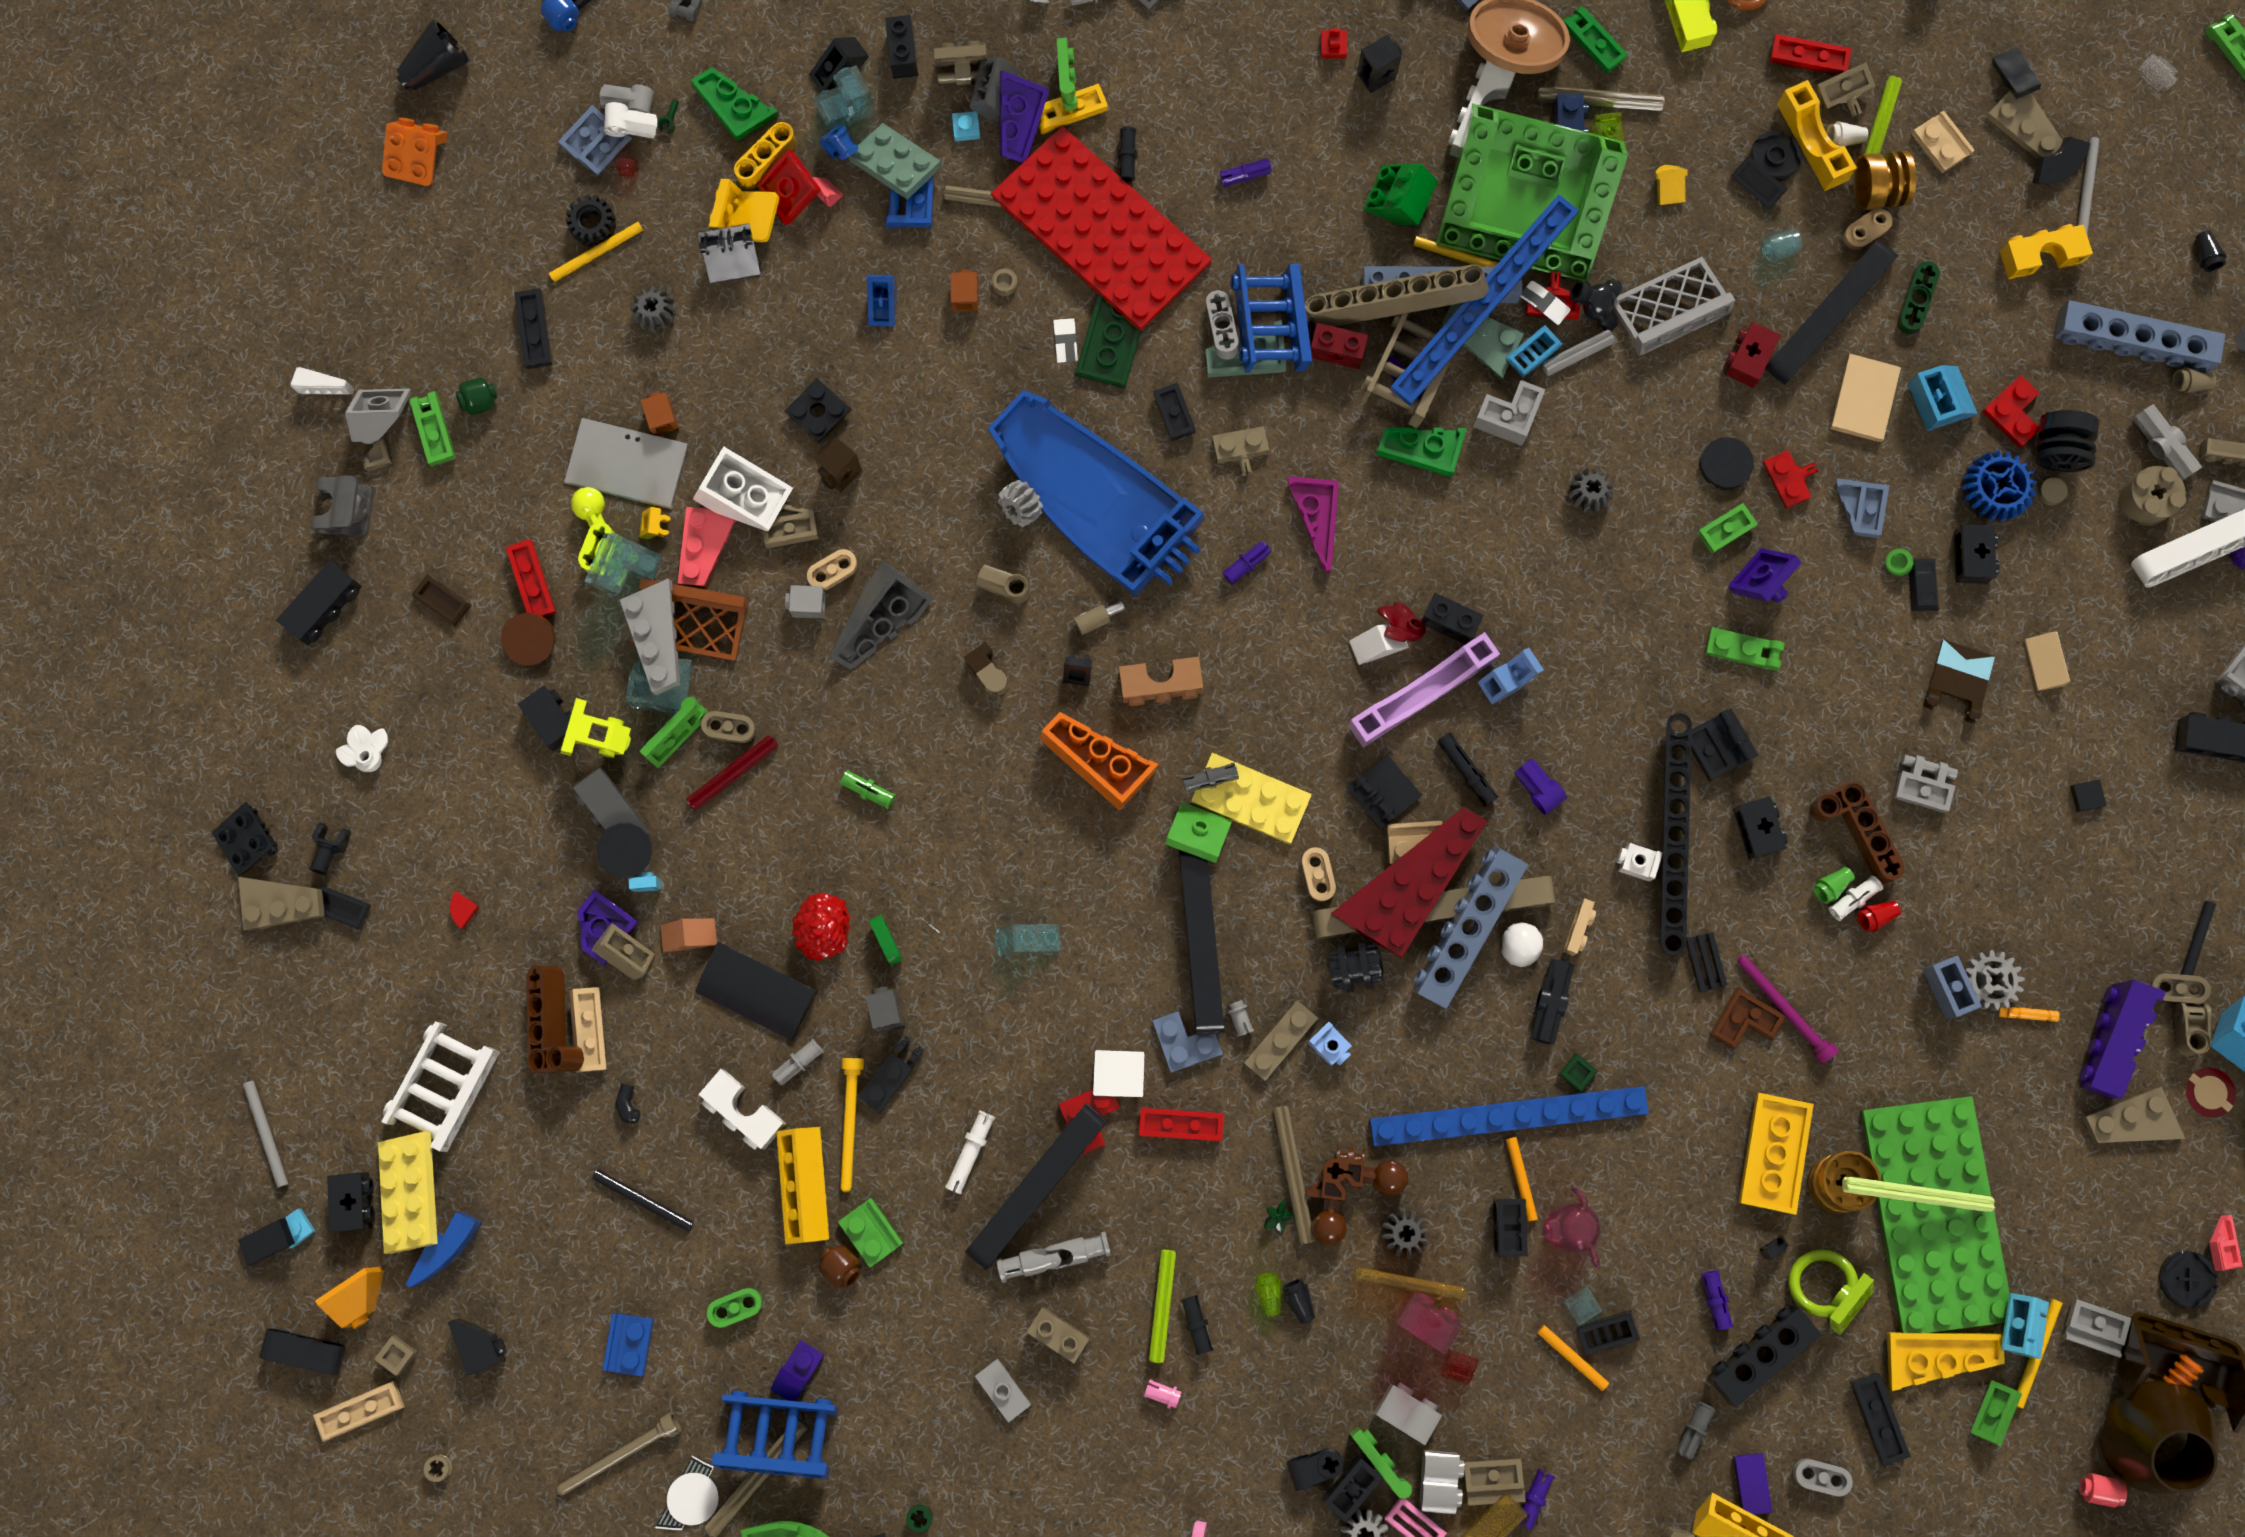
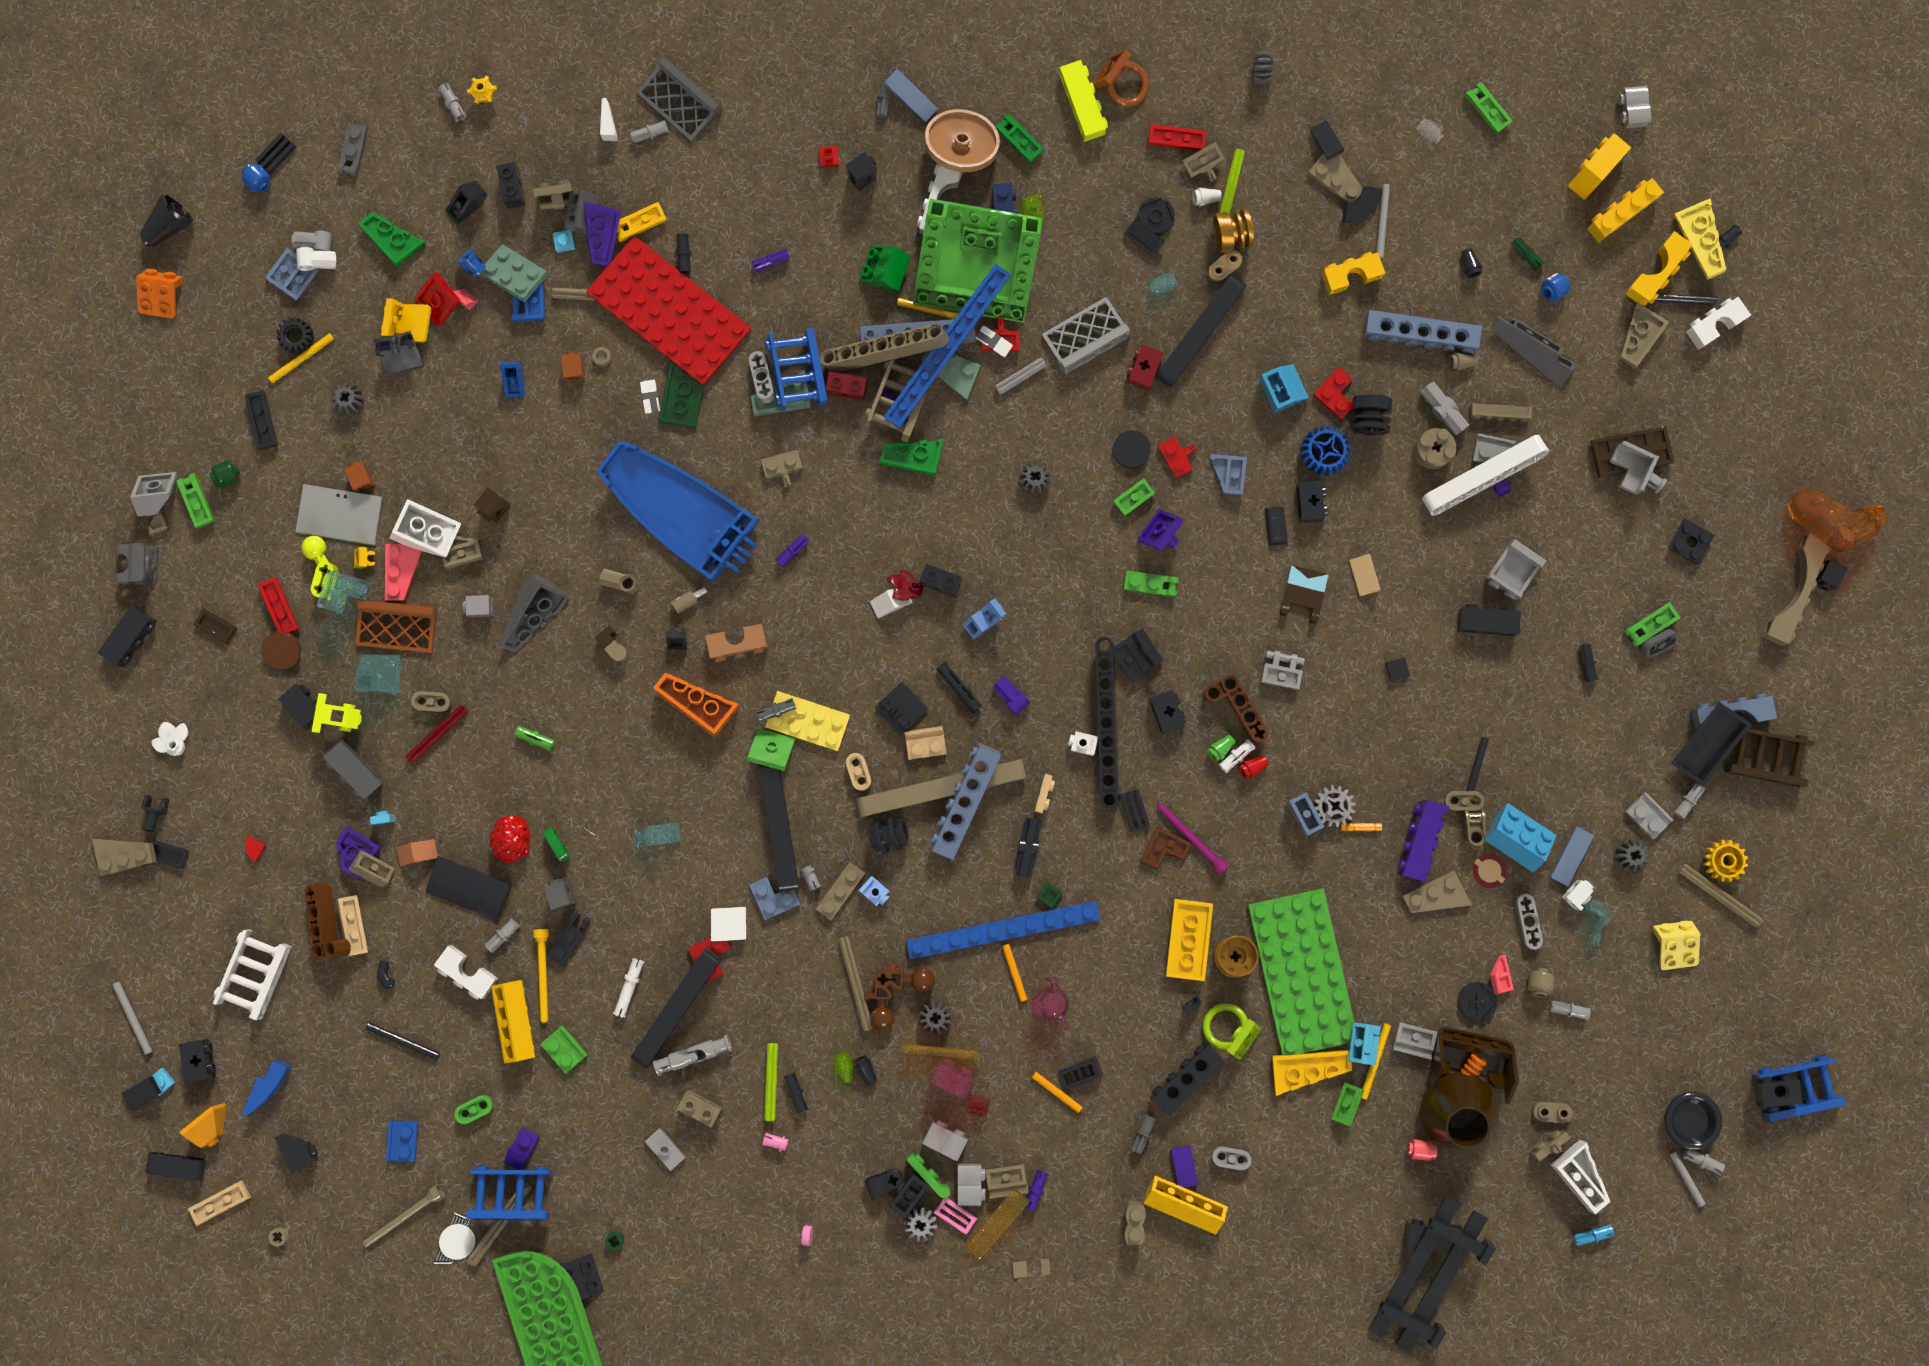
camera: 10 degrees left, 5 degrees up
(244, 838) = (93, 811): black hinge -> none
(313, 382) = (106, 474): white slope -> none
(395, 1355) = (240, 1163): dark tan plate -> none
(407, 1193) = (236, 1050): light yellow plate -> none
(624, 850) = (364, 797): black tile -> none
(626, 166) = (317, 292): clear red plate -> none
(654, 634) = (369, 638): light grey wing -> none
(669, 117) = (345, 252): dark green hand -> none
(674, 732) = (392, 709): bright green plate -> none
(767, 144) = (419, 266): yellow beam -> none
(817, 395) = (463, 461): black piece -> none
(831, 569) = (494, 579): tan plate -> none
(839, 1266) = (544, 1074): reddish brown head -> none
(847, 102) = (473, 232): clear light blue brick -> none
(1020, 503) = (625, 522): light grey gear -> none
(1067, 75) = (633, 197): bright green plate -> none
(1174, 412) = (732, 444): black plate -> none
(1181, 1124) = (774, 955): red plate -> none
(1277, 1217) = (845, 1014): dark green plant -> none
(1318, 507) = (840, 505): magenta wing -> none
(1404, 894) = (916, 784): dark red wing -> none
(1424, 691) = (924, 634): lavender arch -> none
(1510, 1227) = (1006, 1007): black brick -> none
(1512, 419) = (975, 430): light grey panel -> none
(1521, 944) = (1005, 808): white hair -> none
(1547, 338) = (993, 364): dark azure slope -> none
(1582, 1306) = (1061, 1056): clear light blue tile -> none
(1597, 301) = (1031, 337): black animal -> none
(1606, 98) = (1028, 182): dark tan axle -> none
(1670, 184) = (1080, 244): yellow tile -> none
(1717, 1300) = (1153, 1044): dark purple pin -> none
(1802, 113) = (1174, 187): yellow arch -> none
(1865, 398) = (1228, 392): tan tile -> none
(1880, 1419) = (1268, 1115): black plate -> none
(1899, 562) = (1257, 512): bright green tile -> none
(1917, 1194) = (1284, 961): yellowish green axle -> none
(1927, 291) = (1255, 326): dark green beam -> none
(1942, 142) = (1276, 195): tan plate -> none
(2052, 491) = (1365, 450): dark tan tile -> none

